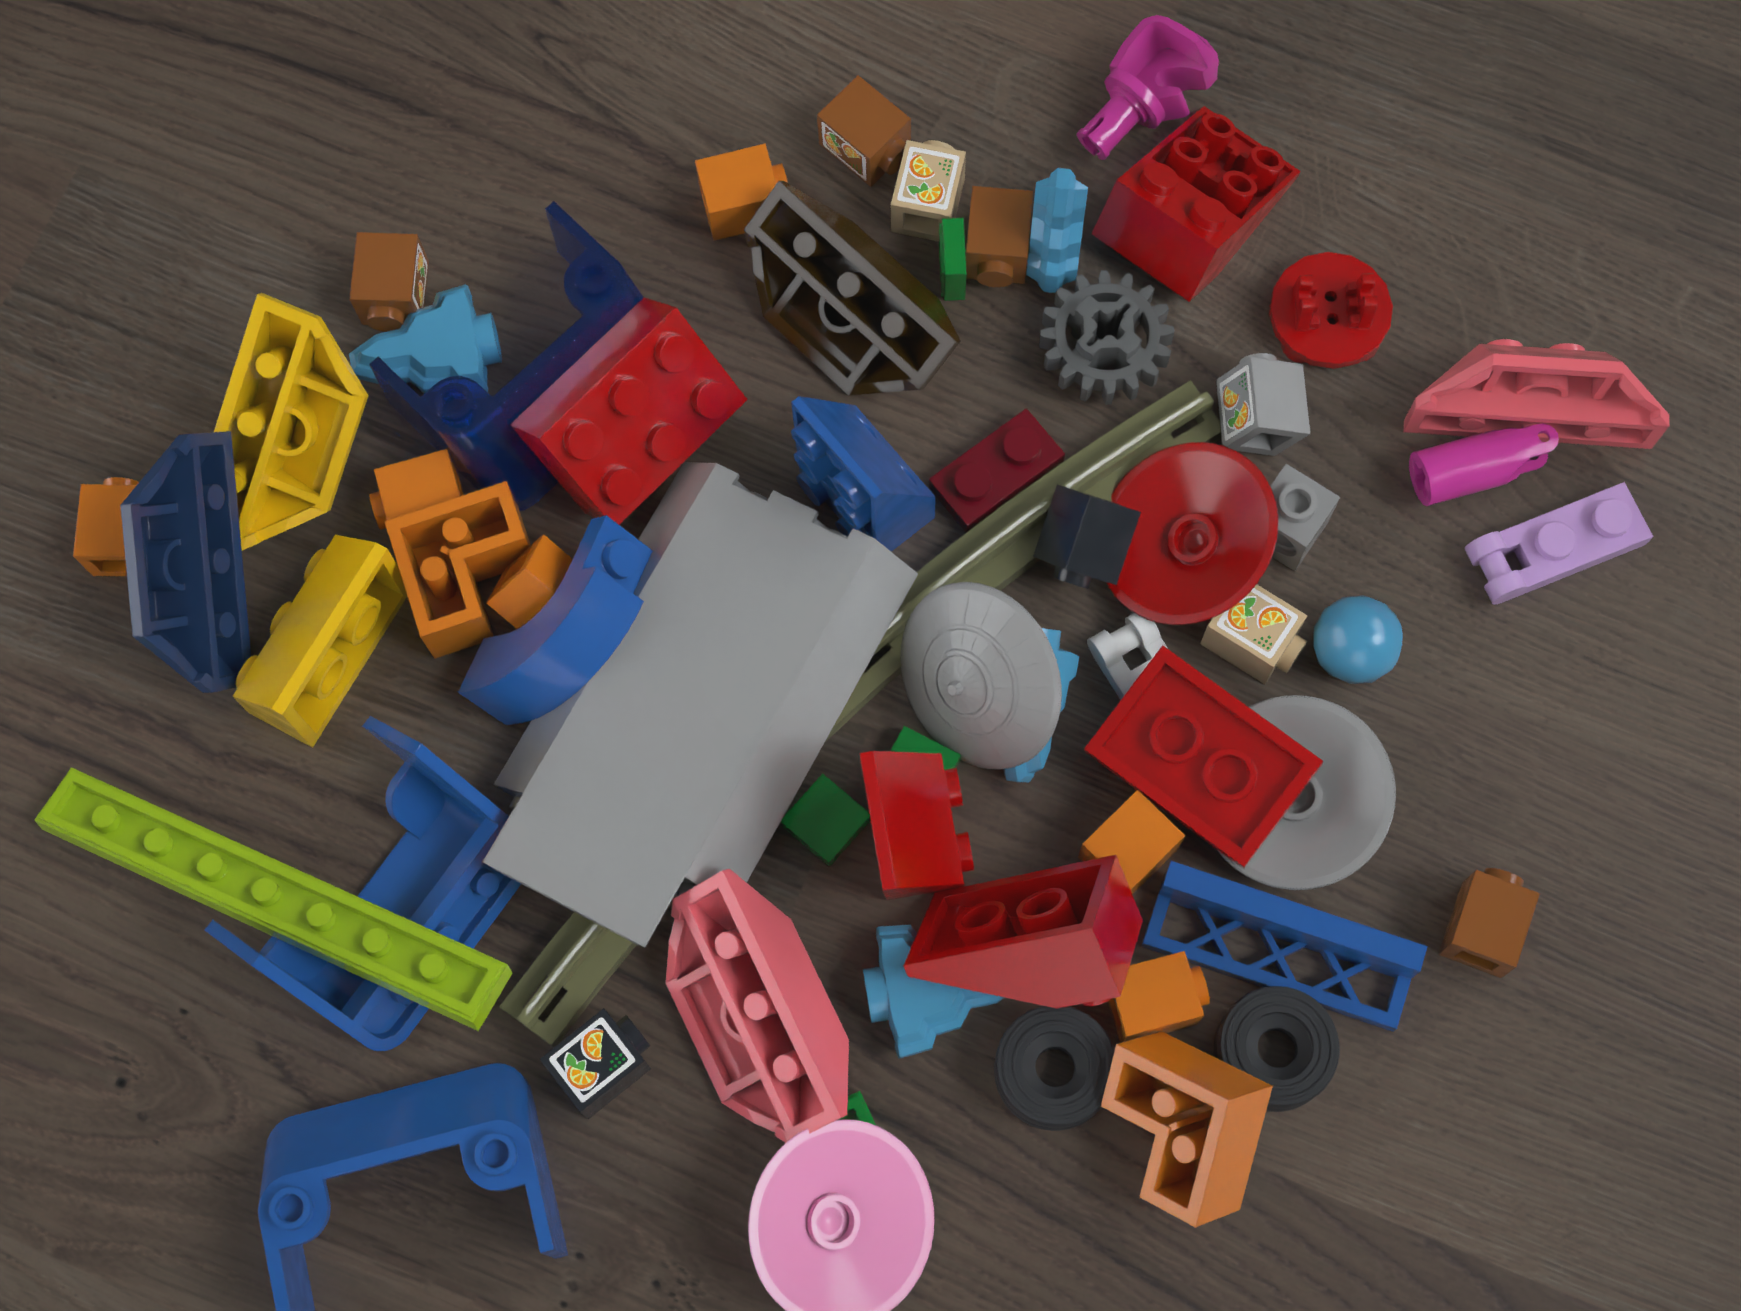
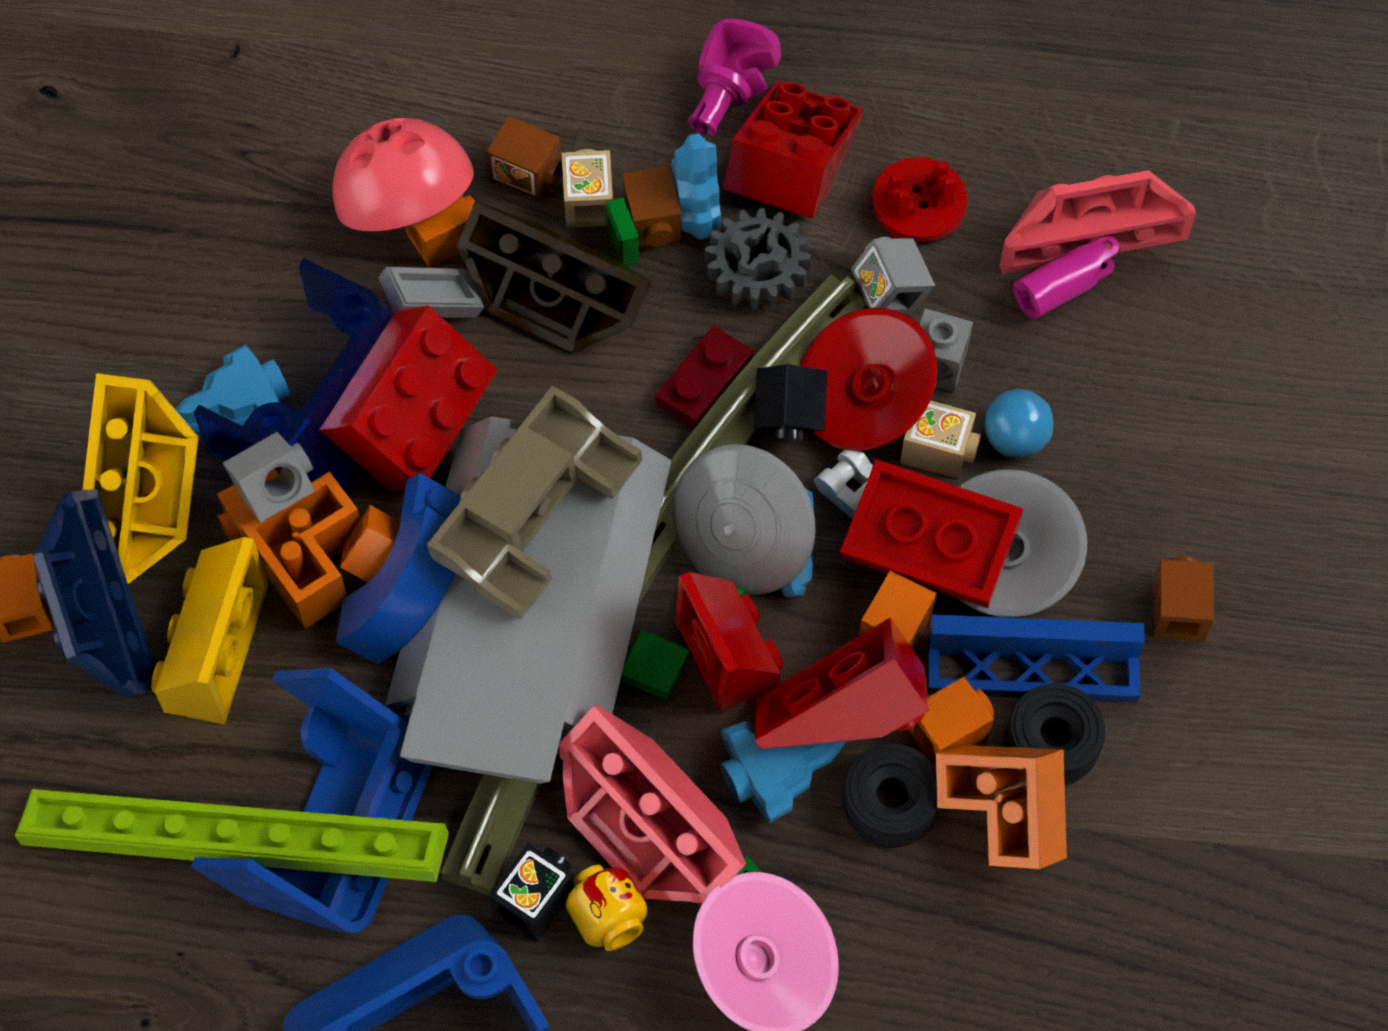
camera: 20 degrees left, 10 degrees down
(388, 278) = (181, 355): dark orange brick -> none
(429, 494) = (252, 466): none -> light grey brick
(674, 1109) = (606, 907): none -> yellow head
(699, 278) = (443, 289): none -> light grey tile
(703, 121) = (398, 175): none -> coral piece
(714, 578) = (520, 492): none -> dark tan bracket
(857, 473) = (606, 393): blue slope -> none
(1560, 543) = (1143, 320): lavender plate -> none

